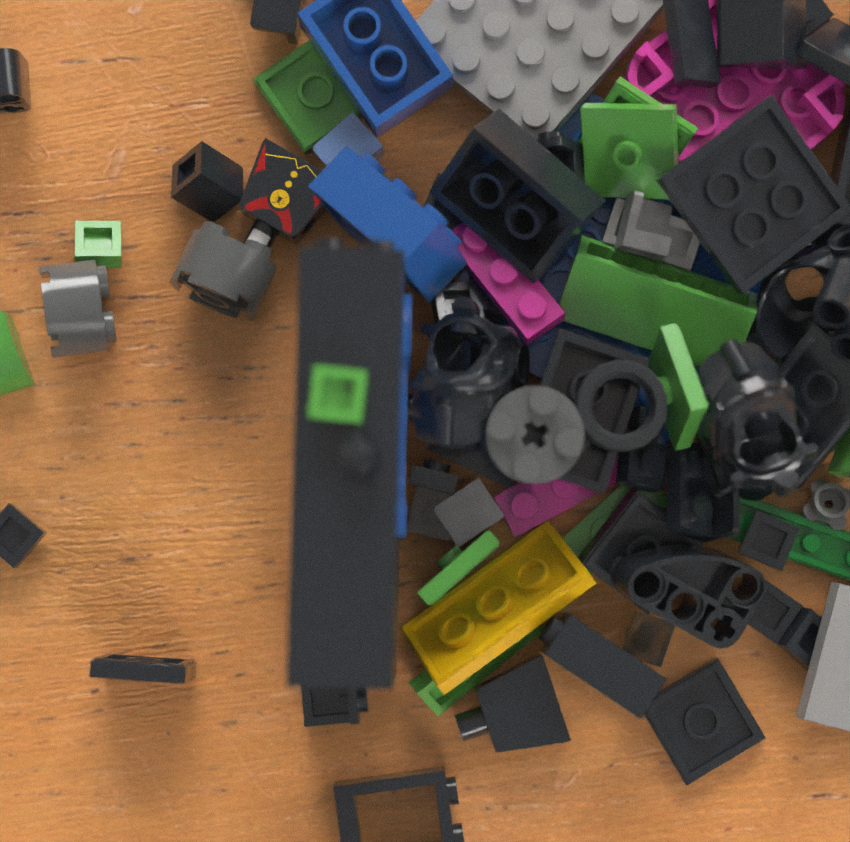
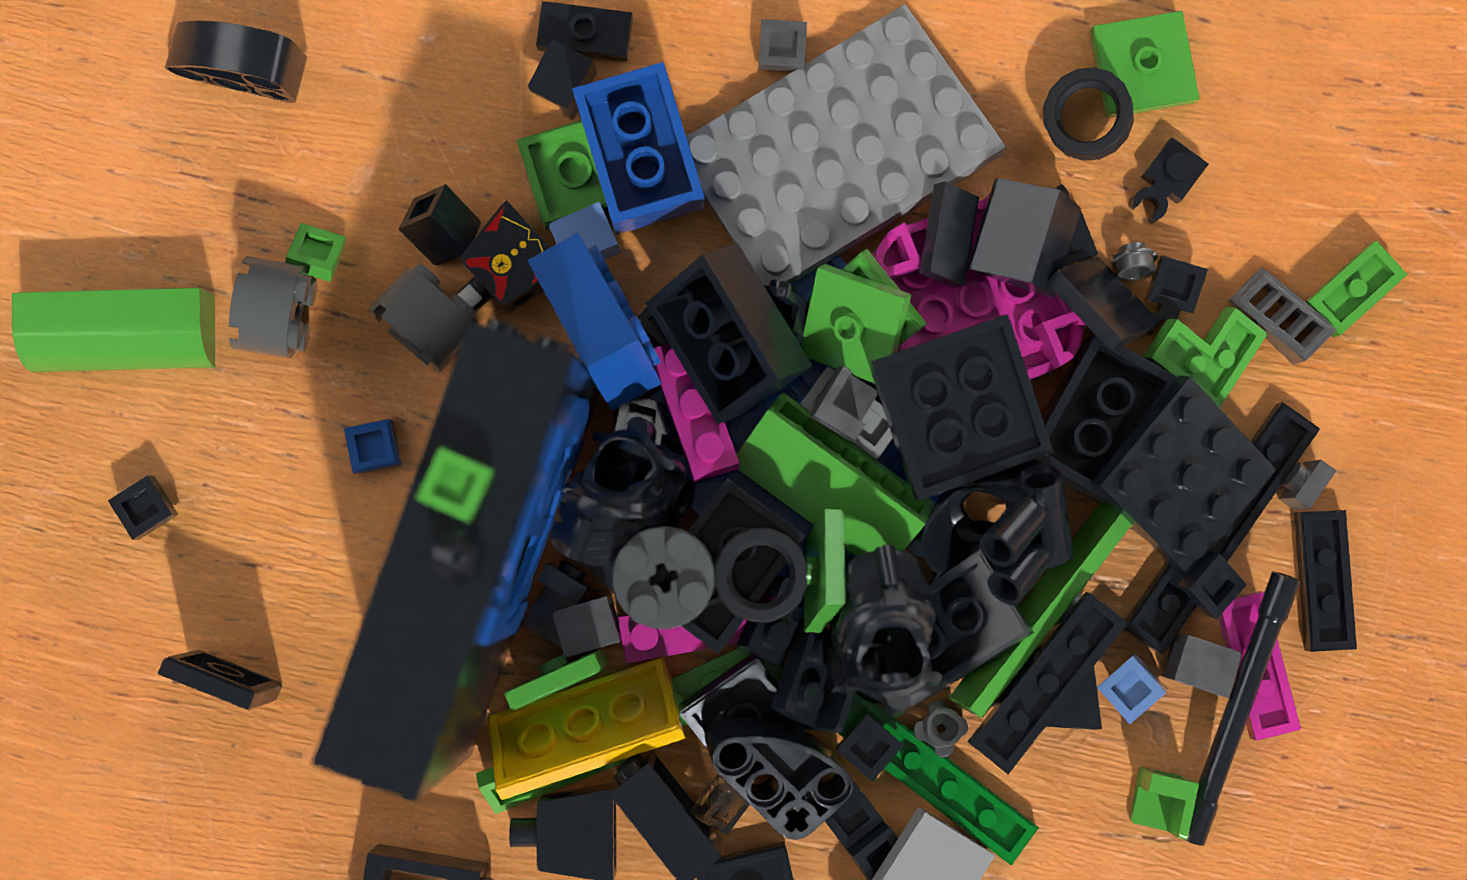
camera: 15 degrees right, 0 degrees up
(209, 410) = (372, 446): none -> blue tile

